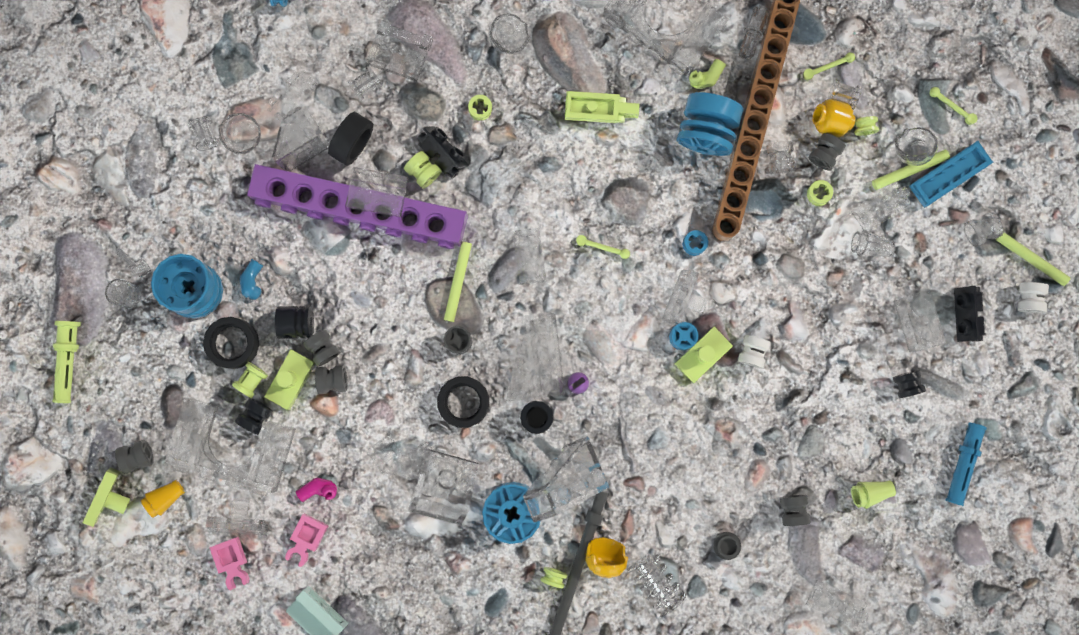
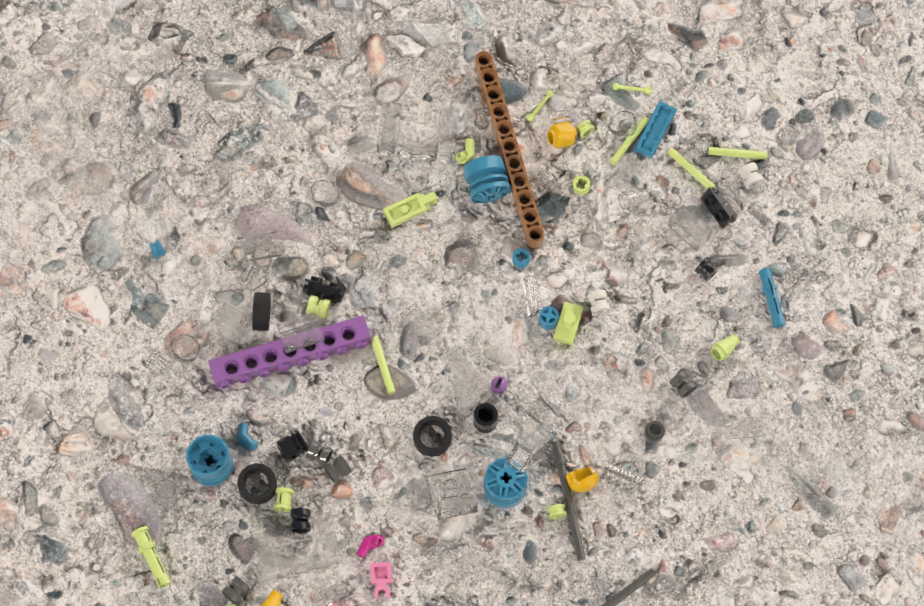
camera: 35 degrees left, 15 degrees down
(290, 379) = (309, 486): yellowish green tile -> none
(456, 336) = (403, 396): dark grey wheel -> none
(473, 112) = (334, 244): yellowish green bush -> none
(581, 241) = (447, 296): yellowish green hinge -> none
(828, 149) = (570, 157): dark grey wheel -> none
(964, 247) = (690, 168): none -> yellowish green bar

